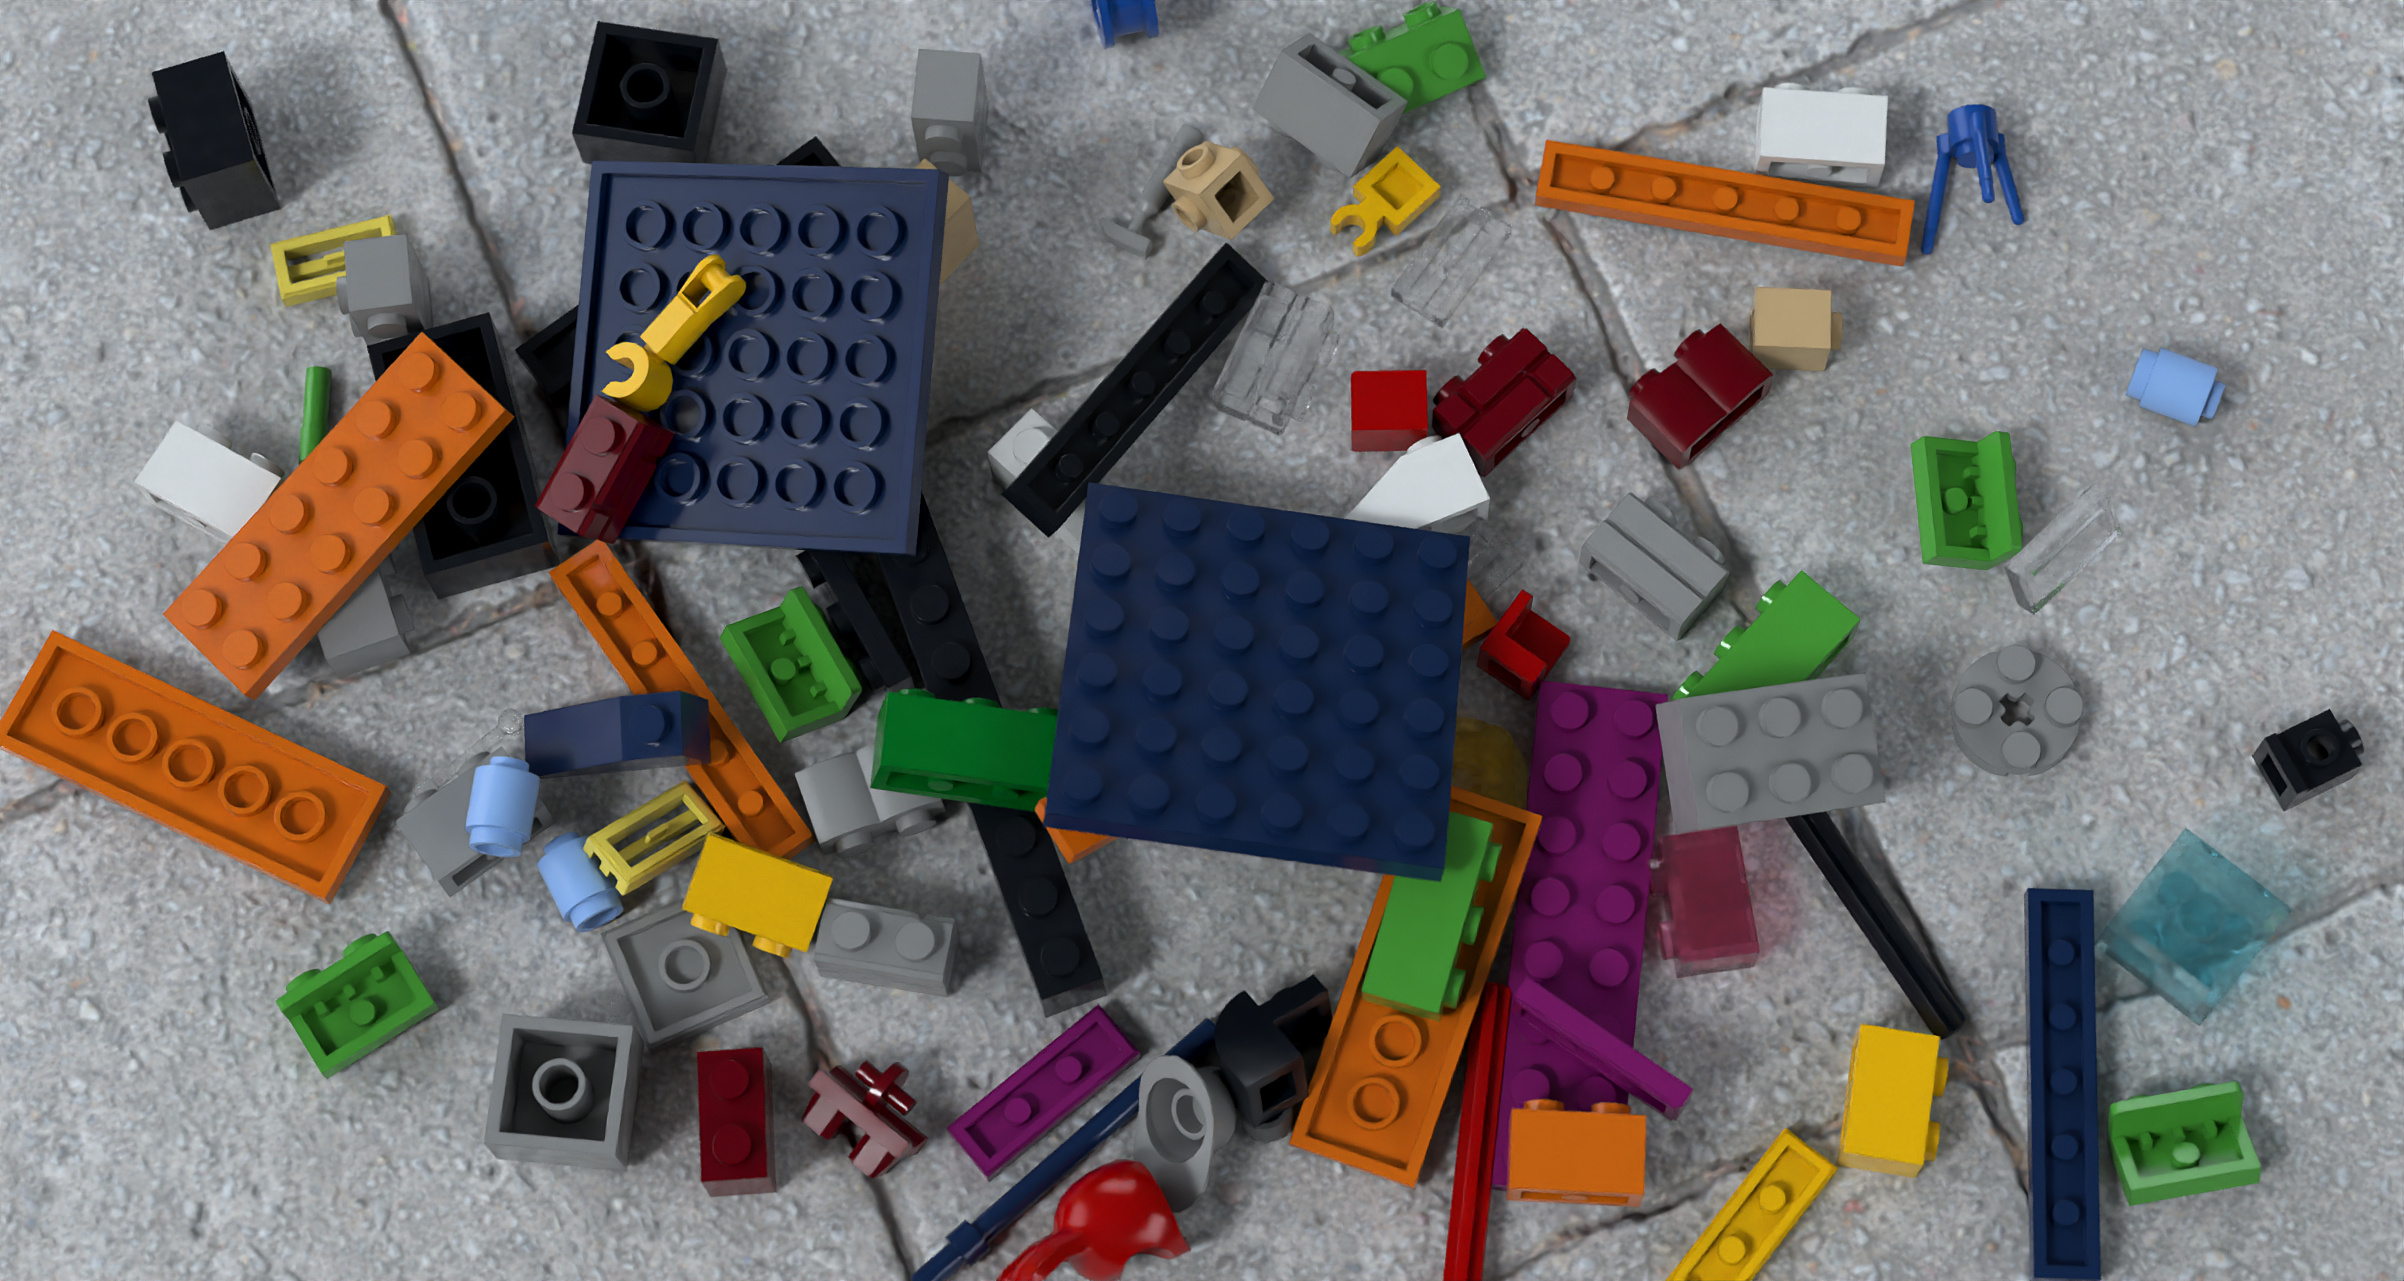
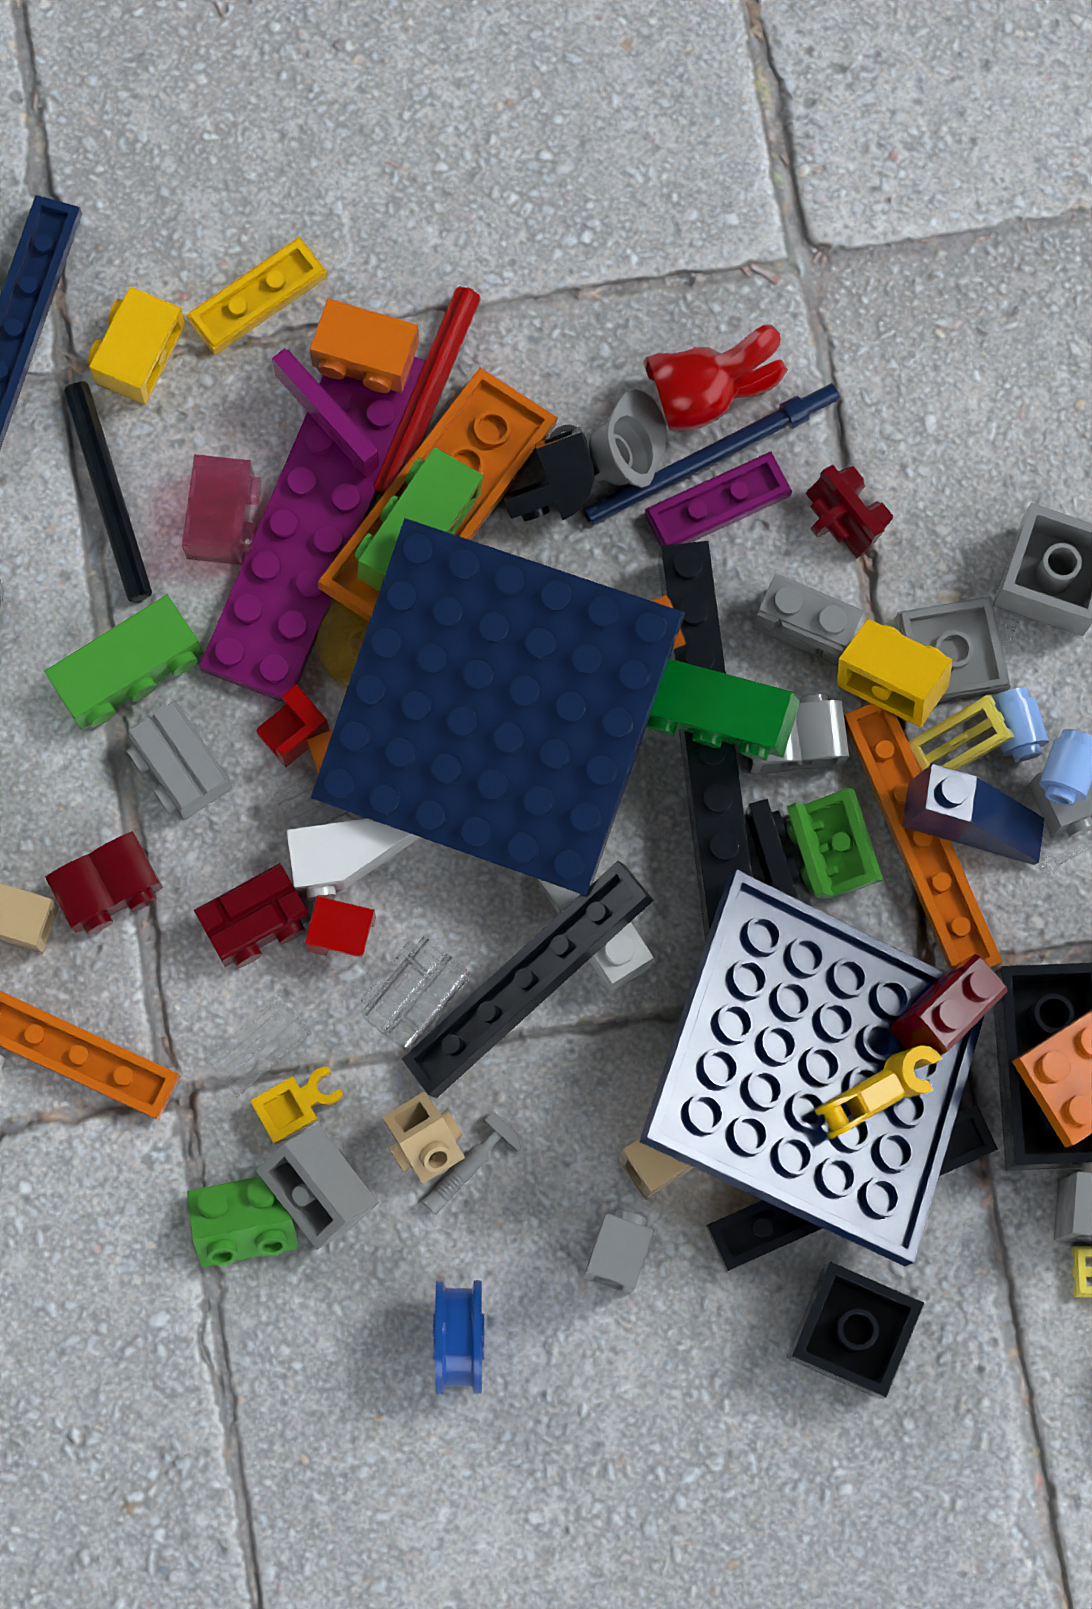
camera: 175 degrees left, 5 degrees up
(736, 1122) = (939, 524): dark red brick -> none
(1770, 752) = (142, 577): light grey brick -> none

